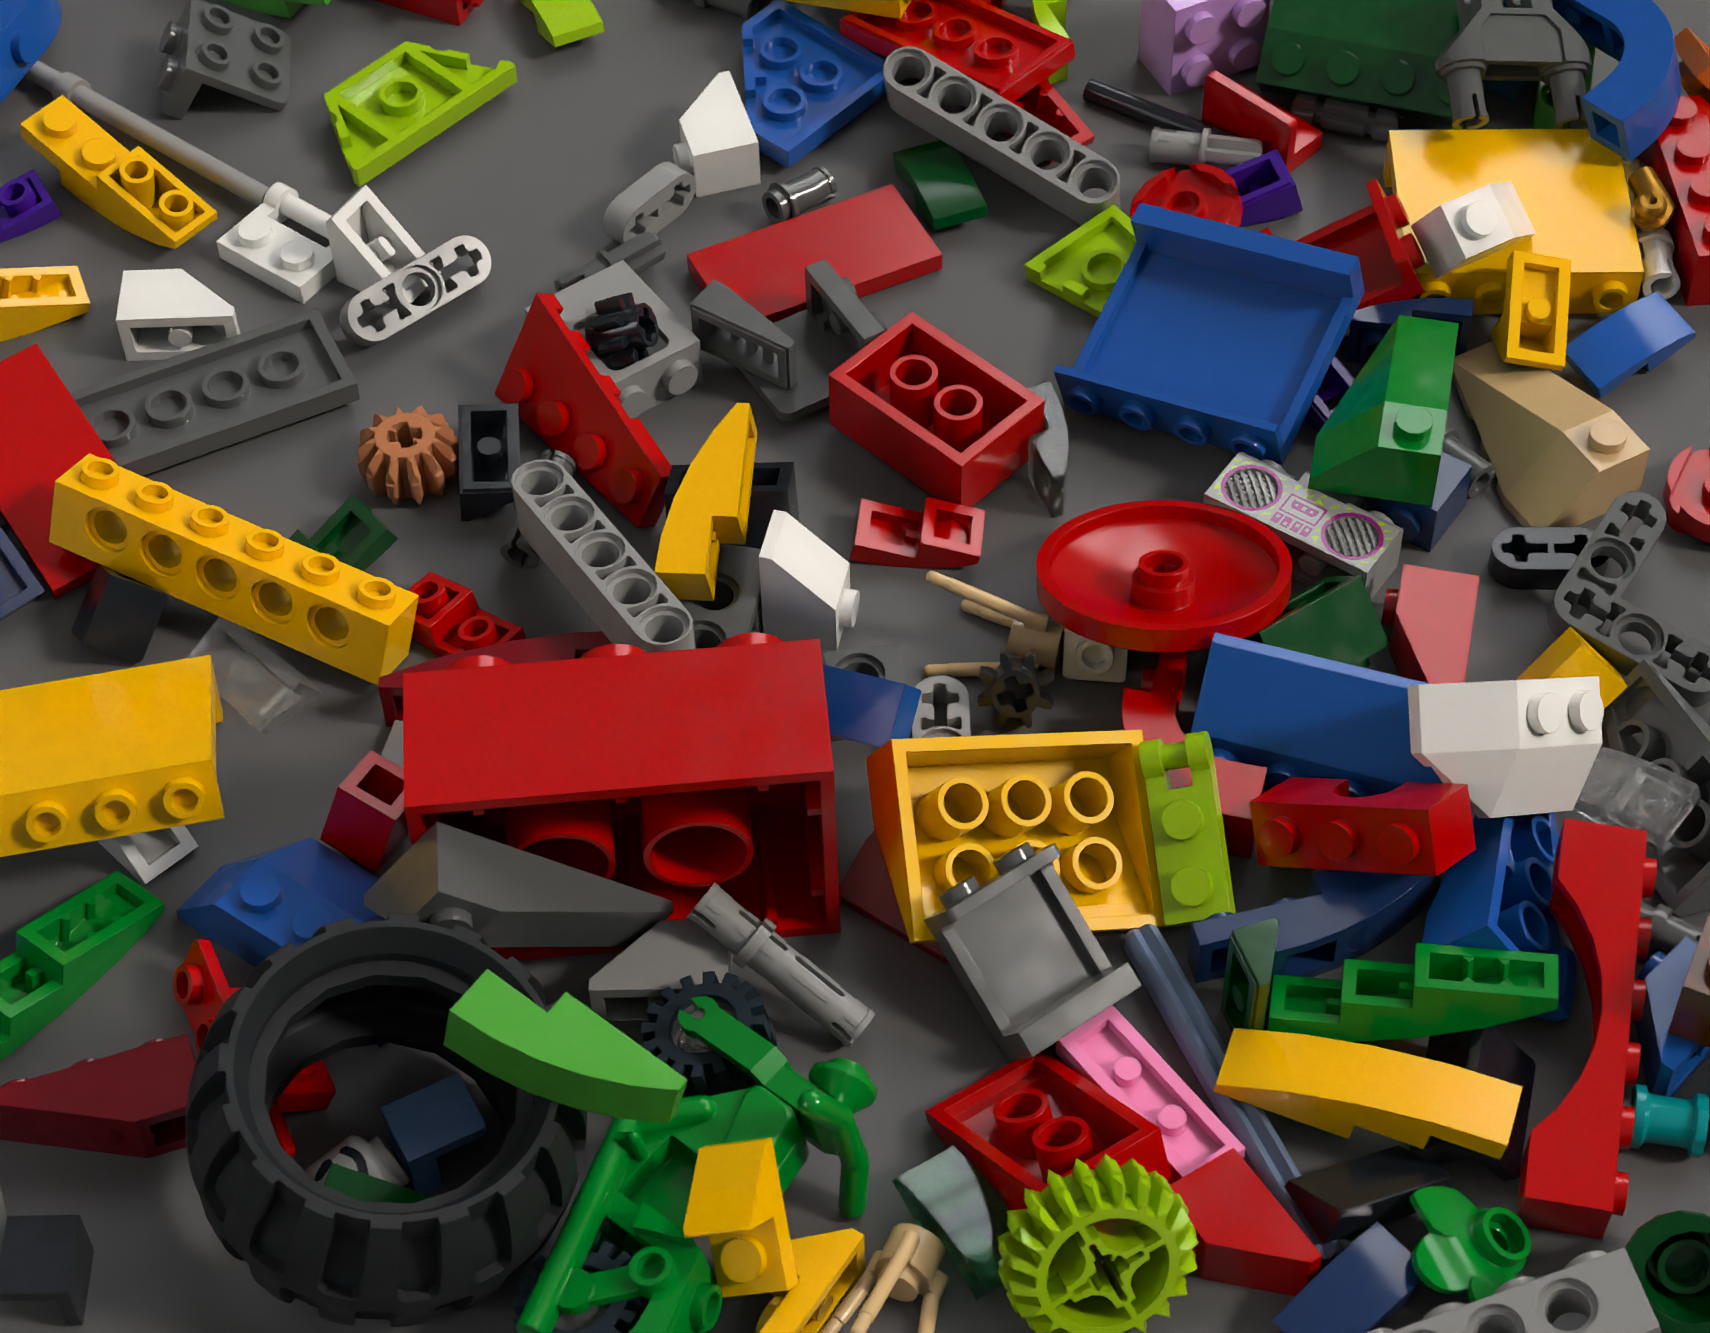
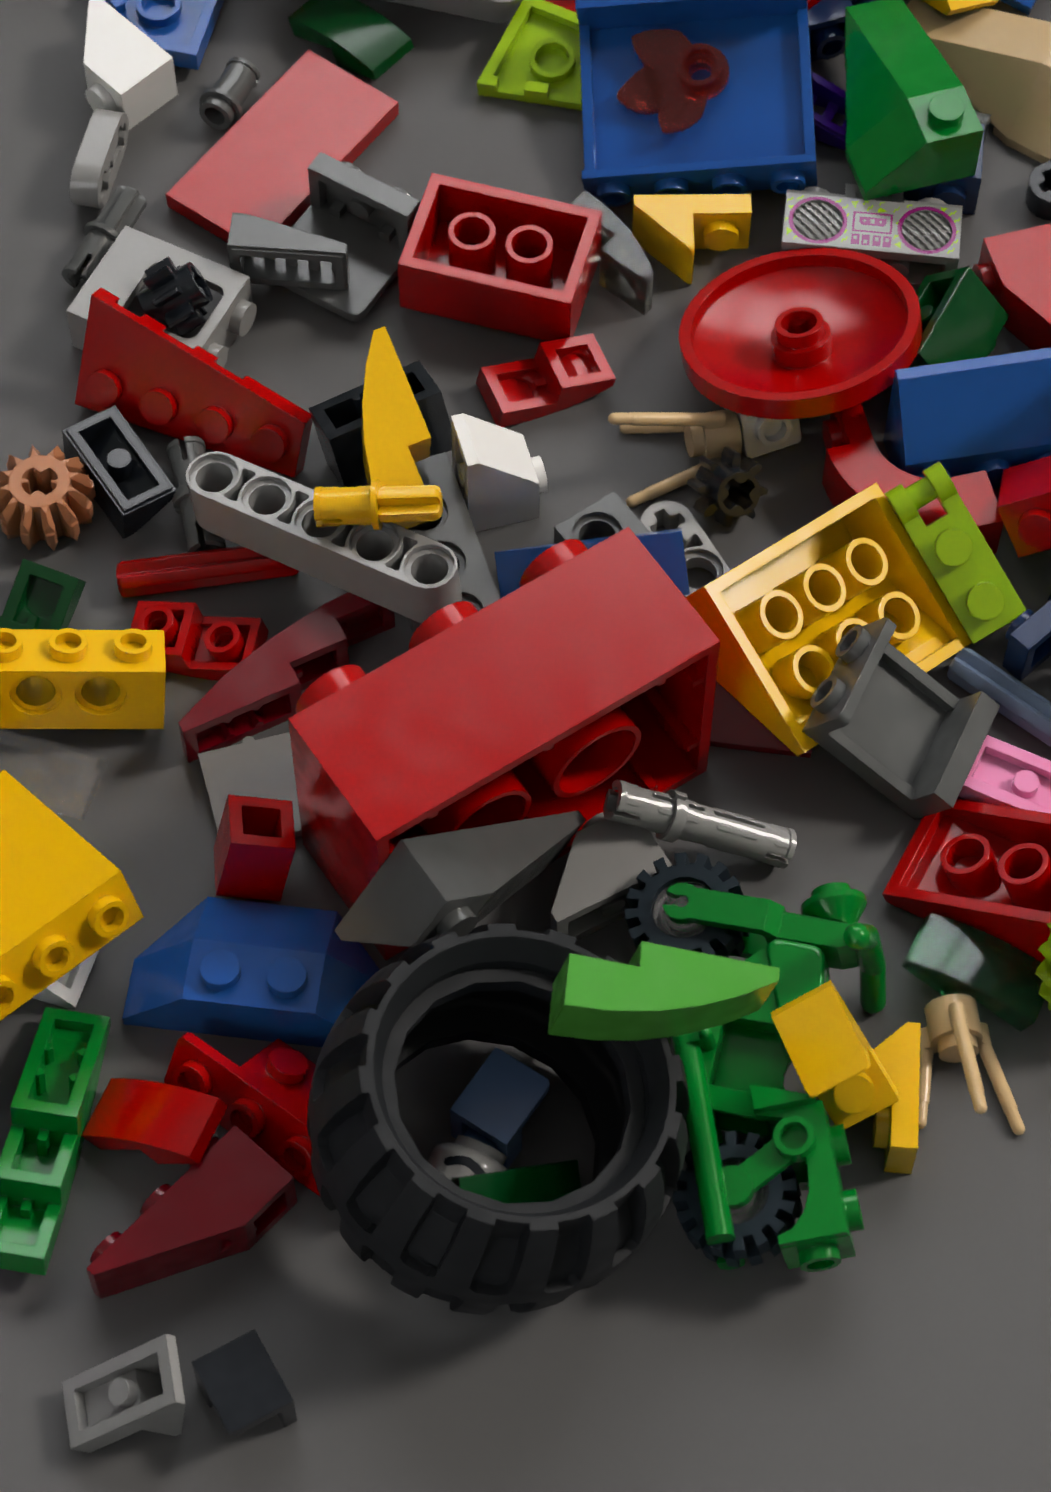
camera: 30 degrees left, 10 degrees up
(131, 1002) = (156, 1118): none -> red slope
(495, 568) = (196, 571): none -> red axle
(646, 552) = (376, 505): none -> yellow axle
(1132, 449) = (679, 223): none -> yellow slope
(1188, 323) = (666, 80): none -> clear red plate

